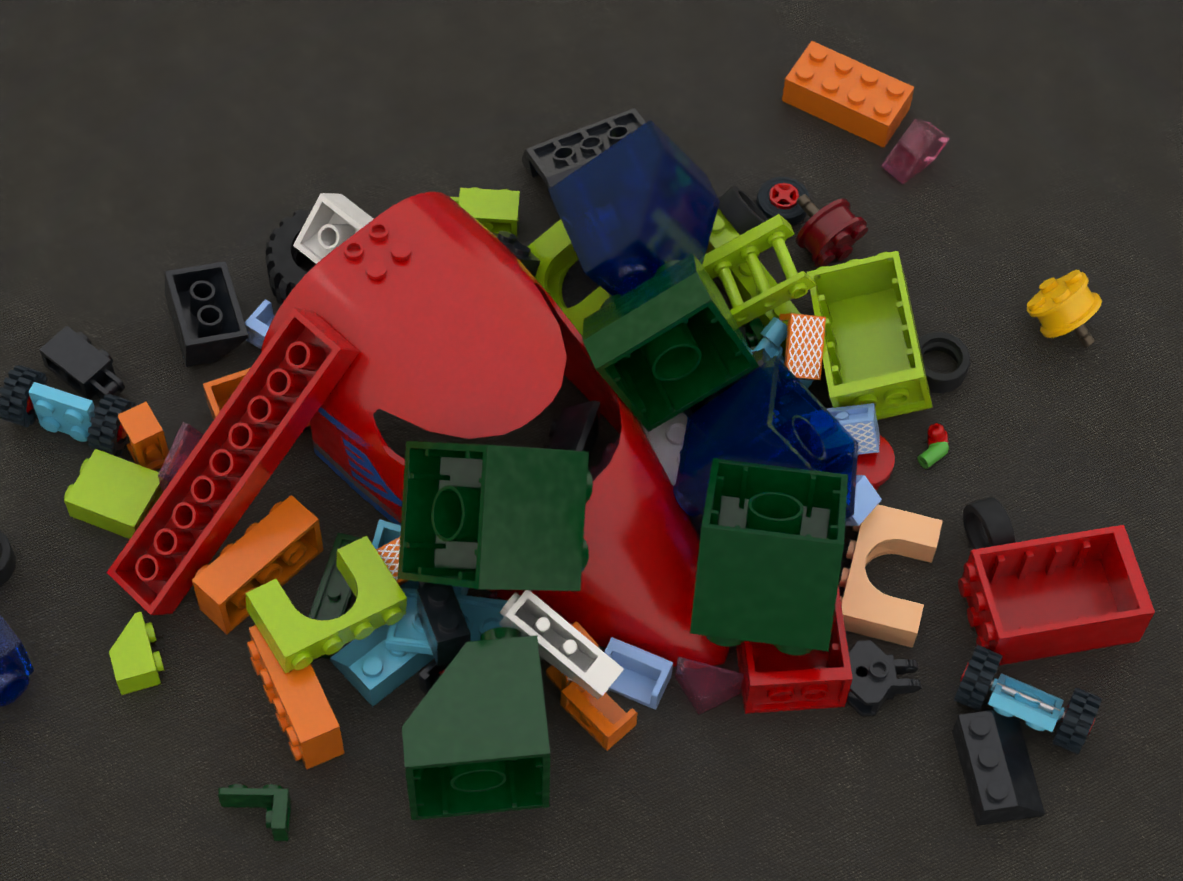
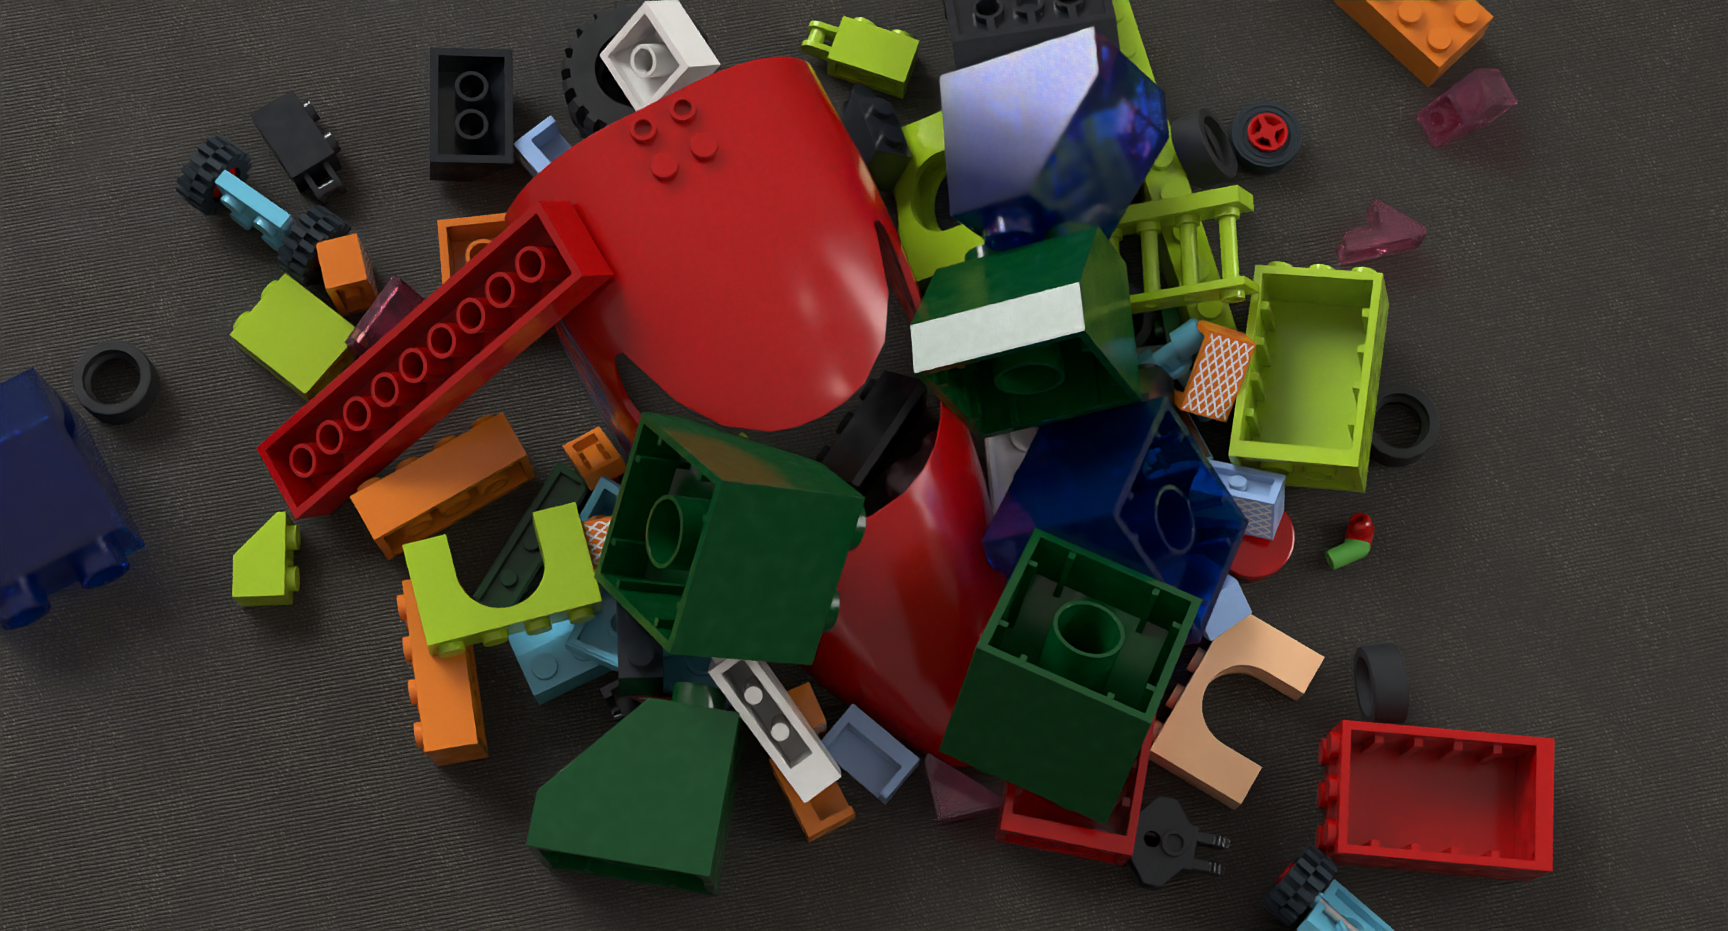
camera: 15 degrees right, 15 degrees up
(271, 796) = (382, 823): dark green bracket -> none
(365, 518) = (594, 457): none -> orange tile
(829, 230) = (1310, 203): dark red wheel -> none
(887, 238) = (1389, 234): none -> clear pink slope
(1065, 306) = (1588, 394): yellow wheel -> none

